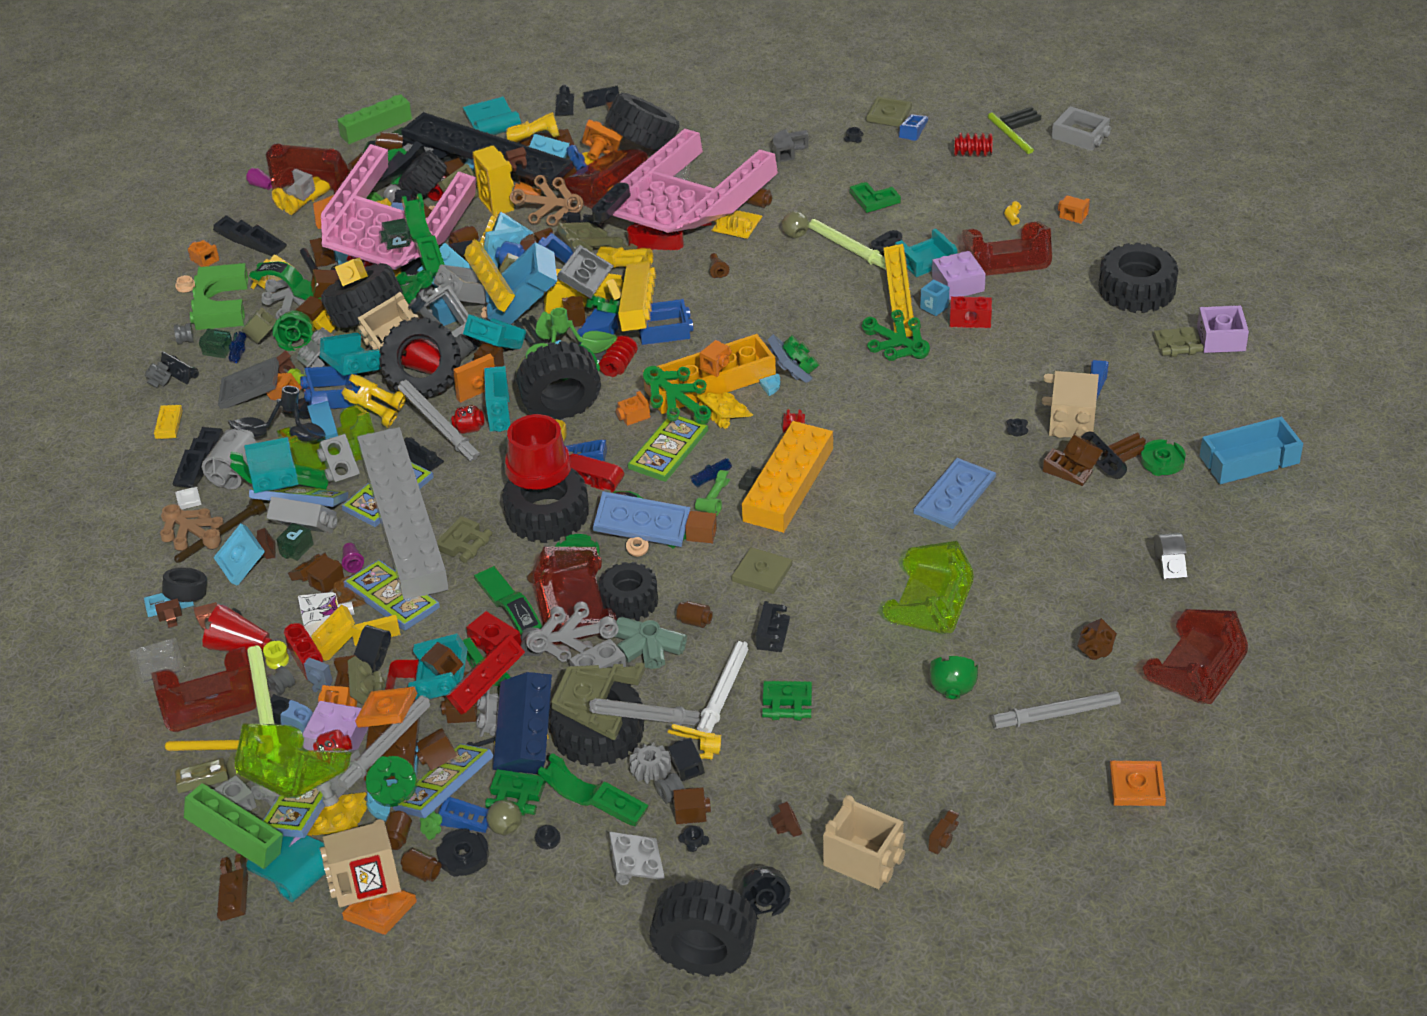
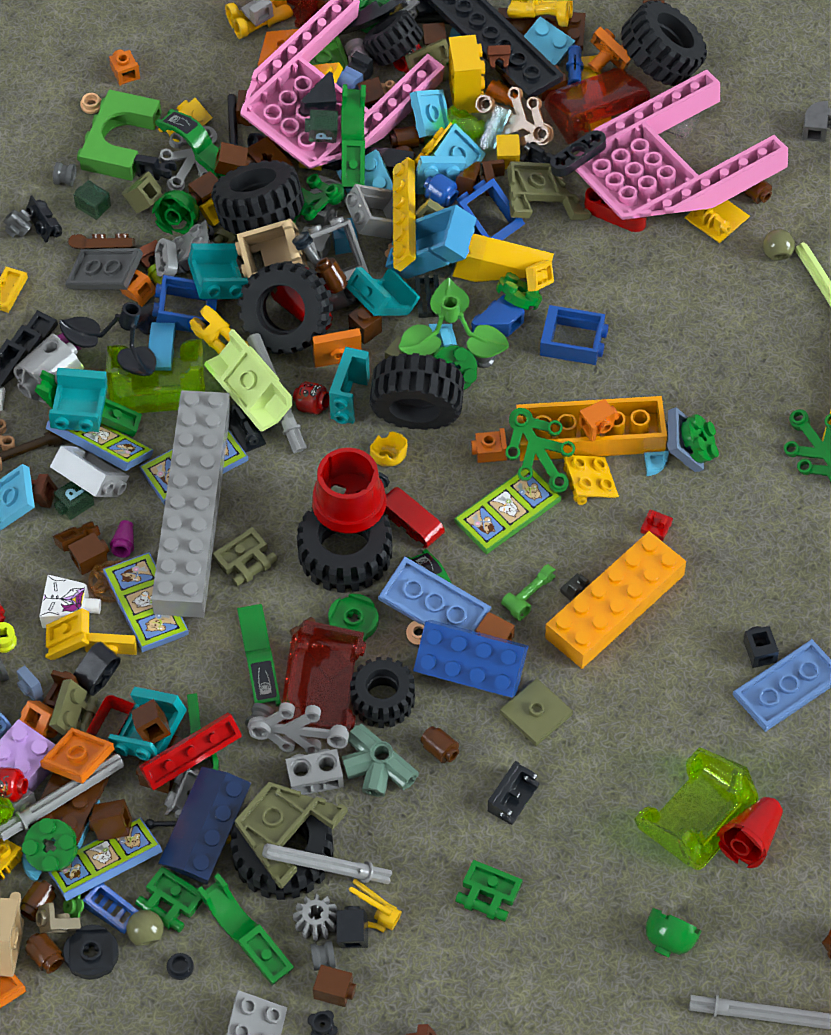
camera: 20 degrees right, 15 degrees up
(218, 371) = (100, 241): none -> reddish brown hinge
(237, 346) = (112, 212): clear blue axle -> none
(249, 236) = (182, 57): black slope -> none
(251, 306) = (148, 163): none -> black plate
(299, 358) = (166, 258): none -> light grey beam
(301, 645) = (31, 636): red beam -> none
(343, 459) = (160, 410): light grey brick -> none
(351, 271) = (249, 173): yellow brick -> none
(385, 212) = (321, 96): none -> black slope
(415, 415) = (250, 382): none -> yellowish green piece
(422, 838) = (52, 923): none -> dark tan bracket
(451, 323) = (332, 274): none -> reddish brown brick
(475, 210) = (429, 111): none -> medium azure plate
(489, 631) = (222, 684): red brick -> none
(511, 210) = (466, 122): none -> clear neon green hair
(532, 210) = (494, 127): none -> clear light blue plate
(549, 219) = (508, 148): none -> yellow panel
(575, 310) = (481, 287): reddish brown brick -> none
(585, 271) = (508, 245): tile -> none
(592, 449) = (427, 498): blue slope -> none
(618, 356) = (504, 367): red piece -> none
(620, 258) = (556, 223): yellow piece -> none
(637, 295) = (553, 295): yellow brick -> none
(692, 544) = (470, 658): none -> blue brick
(710, 472) = (537, 562): clear blue axle -> none
(711, 714) = (402, 880): white axle -> none
(718, 267) = (667, 276): reddish brown cone -> none
(920, 472) = (768, 649): none -> black brick
(980, 593) = (751, 832): none -> red cone

